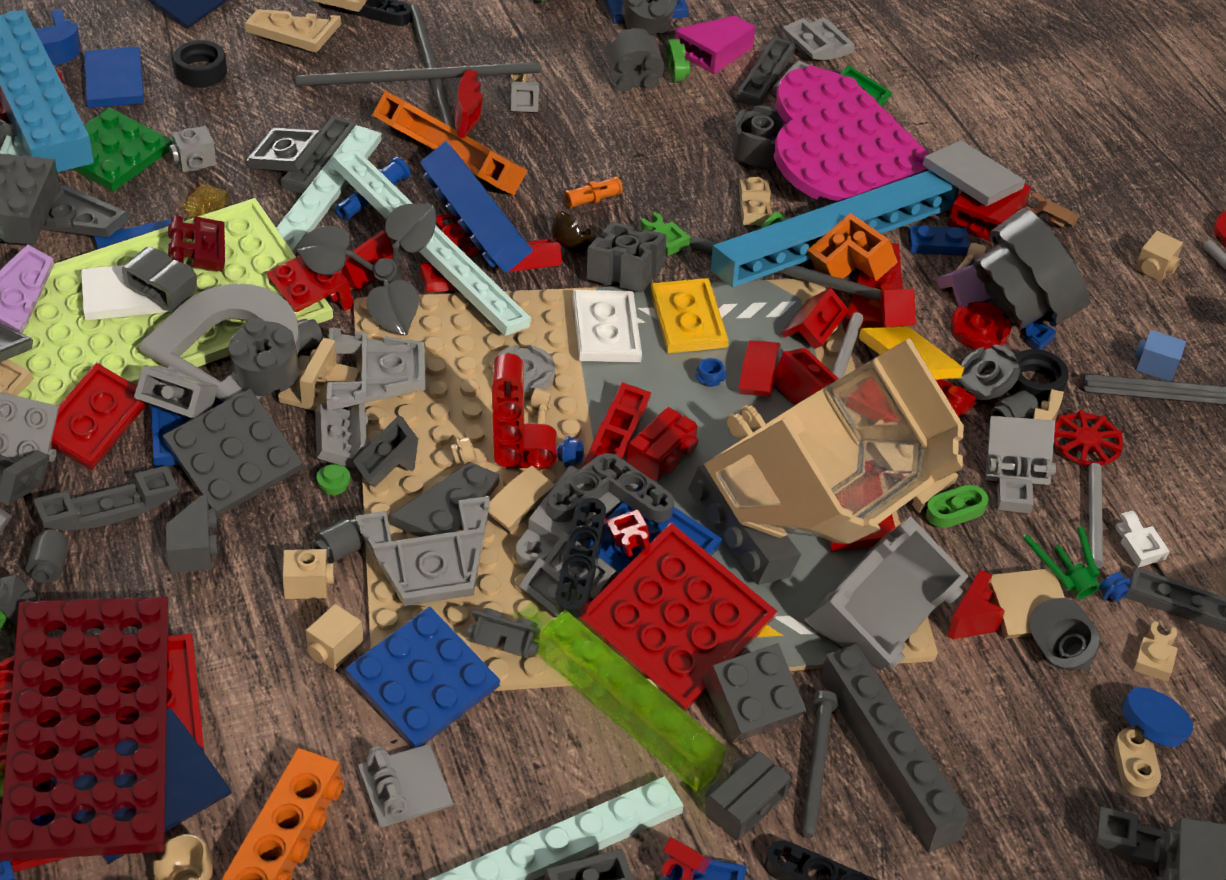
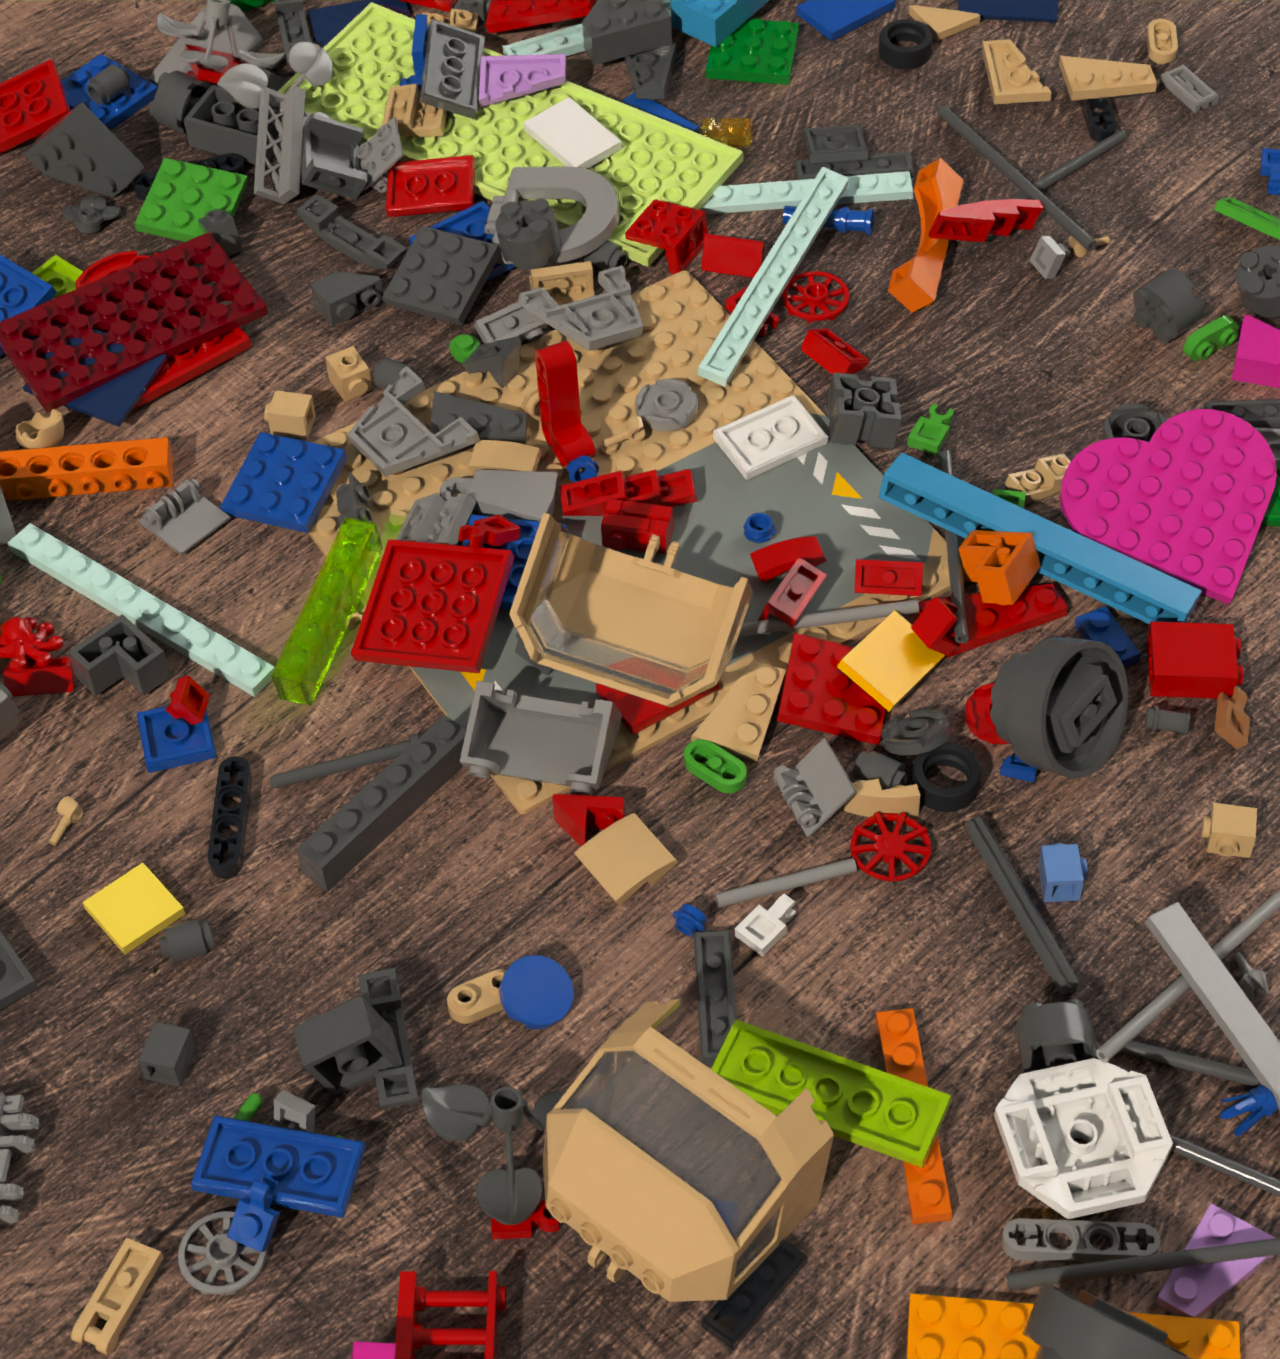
camera: 70 degrees right, 5 degrees up
(47, 556) = (277, 232): dark grey brick -> none
(159, 278) = (582, 138): dark grey brick -> none
(175, 391) = (468, 208): light grey brick -> none
(193, 30) = (943, 21): none -> tan tile
(193, 149) = (780, 91): light grey brick -> none
(207, 242) = (651, 148): dark red plate -> none
(397, 299) = (745, 245): dark grey plant -> none
(475, 207) = (843, 284): blue brick -> none
(568, 233) = (876, 359): dark brown hair -> none
(581, 557) = (438, 507): black beam -> none
(592, 192) = (968, 368): orange pin -> none
(606, 481) = (543, 497): dark grey beam -> none
(688, 315) = (829, 487): yellow tile -> none
(746, 794) = (282, 724): dark grey brick -> none
(753, 693) = (379, 685): dark grey brick -> none
(973, 173) = (1206, 618): light grey tile -> none
(1015, 495) = (761, 807): light grey plate -> none
(1065, 634) = (585, 893): dark grey piece -> none
(1078, 578) = (674, 886): green plant -> none
(1157, 654) = (625, 979): tan plate -> none

